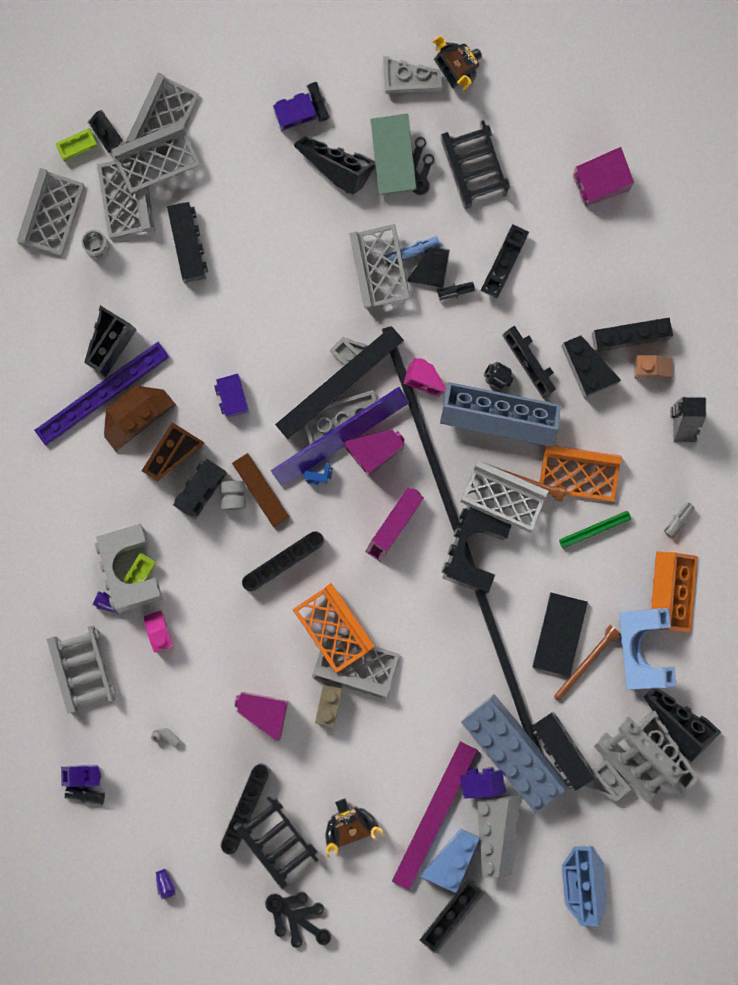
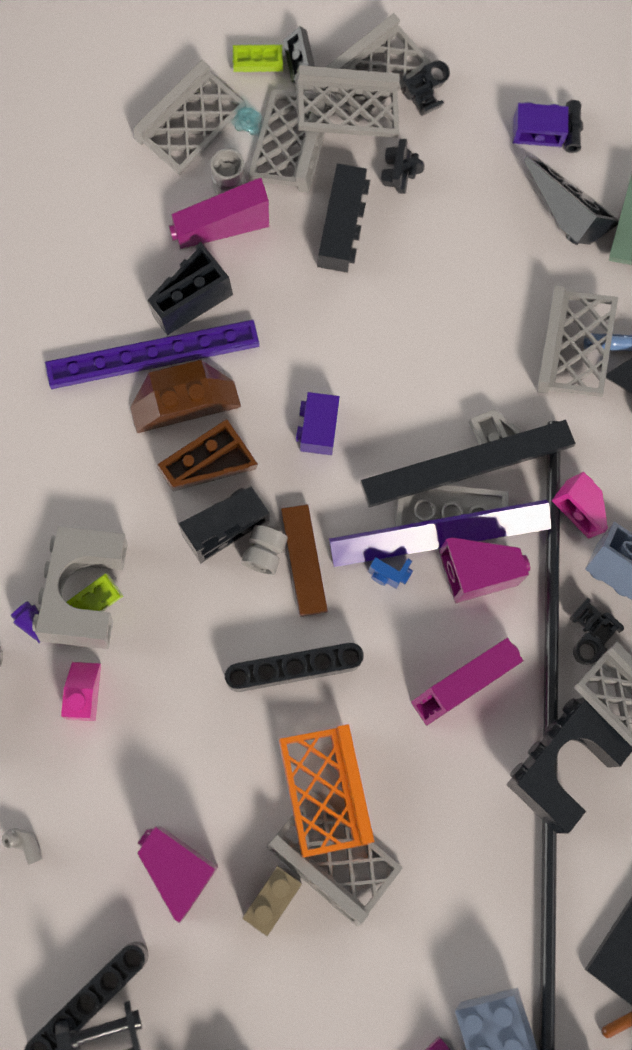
camera: 15 degrees right, 10 degrees down
(91, 191) = (251, 115): none -> clear light blue plate
(104, 278) = (222, 216): none -> magenta slope
(202, 118) = (423, 90): none -> black piece
(213, 184) = (406, 166): none -> black hips
(465, 454) = (598, 629): none -> black piece

